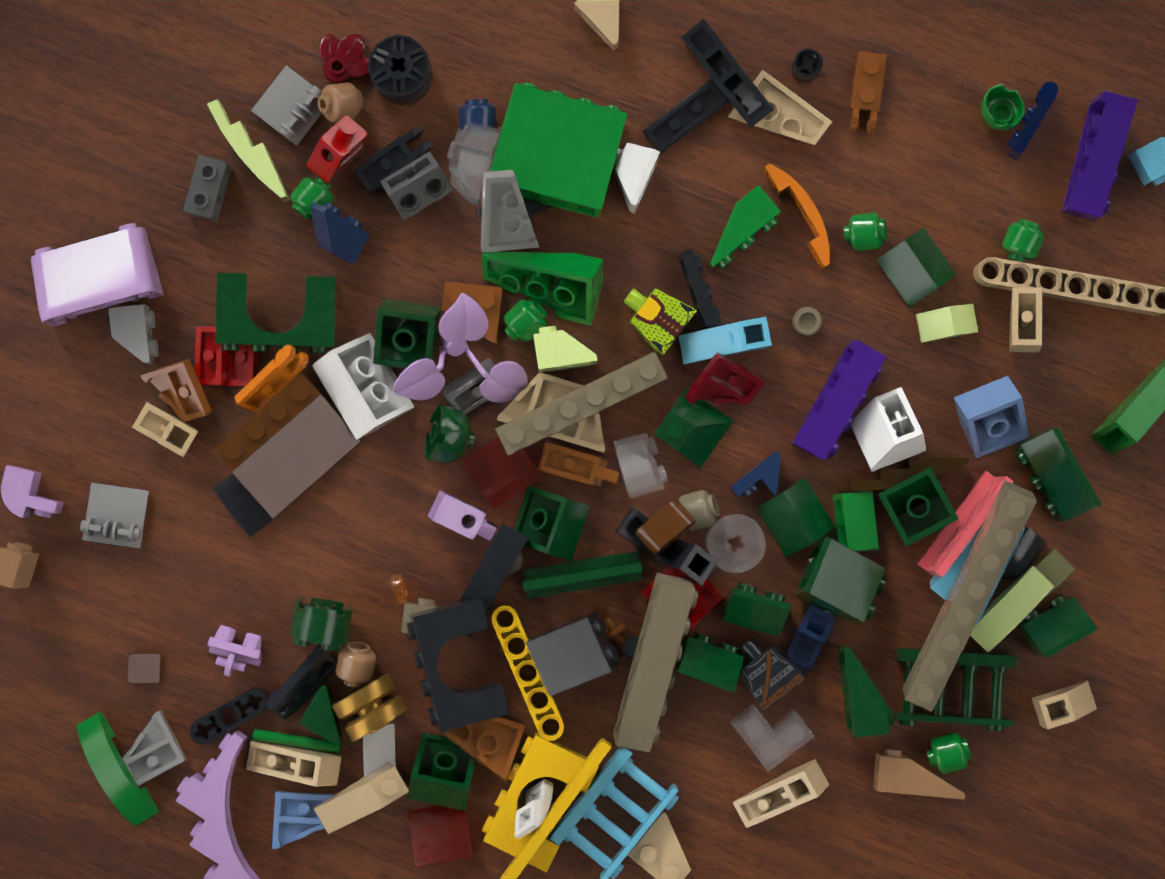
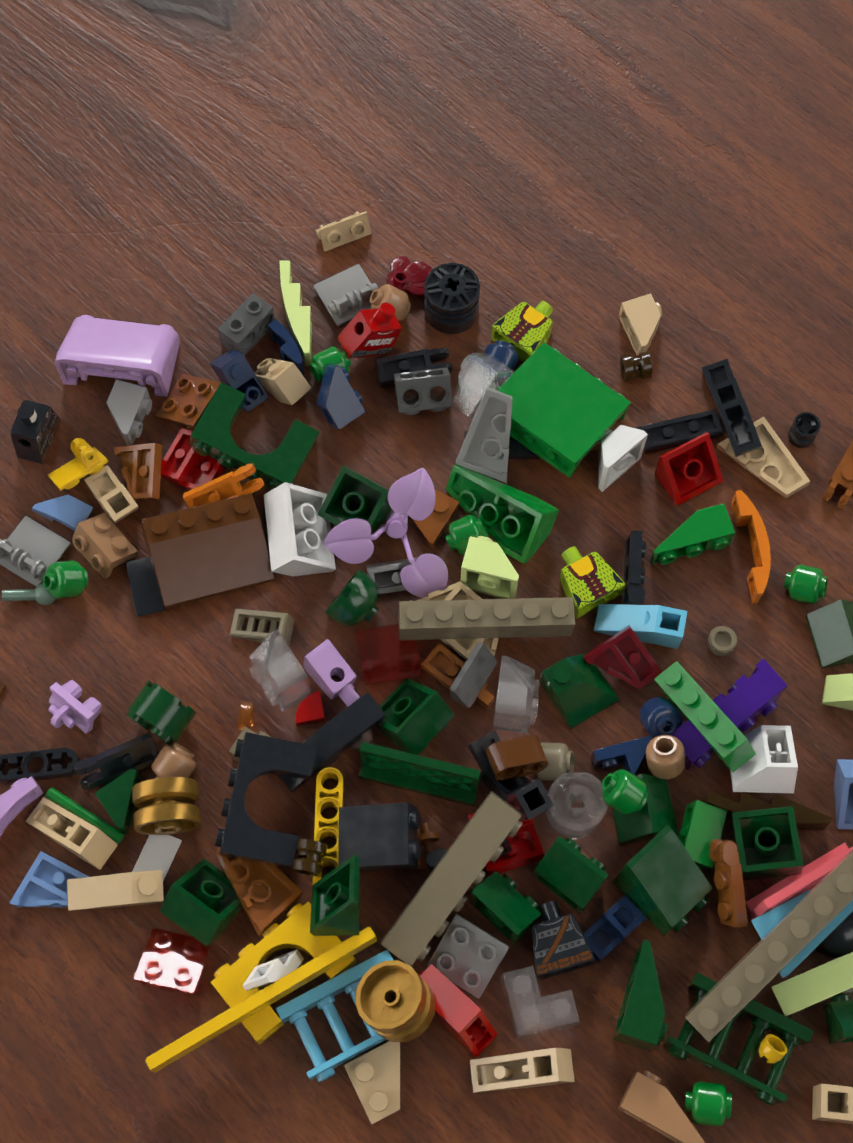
camera: 25 degrees right, 20 degrees down
(55, 395) = (36, 426): none -> black torso
(118, 414) = (87, 461): none -> yellow hinge
(127, 461) = (65, 510): none -> medium blue slope
(149, 551) = (39, 594): none -> sand green bar
(165, 532) = (65, 579): none -> green head
(181, 480) = (102, 544): none -> medium nougat bracket
(189, 294) = (188, 400): none -> dark orange hinge
(227, 250) = (236, 372): none -> dark blue slope
(261, 23) = (344, 231): none -> tan hinge
(264, 199) = (288, 348): none -> dark blue slope
(270, 233) = (282, 380): none -> tan slope
(395, 489) = (281, 621): none -> dark tan slope
(411, 537) = (280, 672): none -> clear slope
(454, 555) = (310, 710): none -> red tile
(488, 71) = (524, 328): none -> lime torso
(520, 700) = (309, 857): none -> dark brown wheel
(563, 731) = (337, 901): none -> dark green slope
(592, 464) = (472, 676): none -> flat silver slope
(615, 65) = (636, 366): none -> dark brown wheel
(635, 791) = (395, 1001): none -> pearl gold wheel
(694, 717) = (468, 956): none -> light grey hinge
(701, 770) = (459, 1012): none -> red slope
(712, 159) = (689, 469): none -> red slope
(775, 519) = (624, 792): none -> green head
(779, 428) = (659, 717): none -> dark blue head
(798, 465) = (665, 756): none -> medium nougat head
(817, 414) = (706, 716): none -> green arch
(897, 557) = (729, 883): none -> dark orange hinge
(993, 687) = (772, 1048): none -> yellow hinge

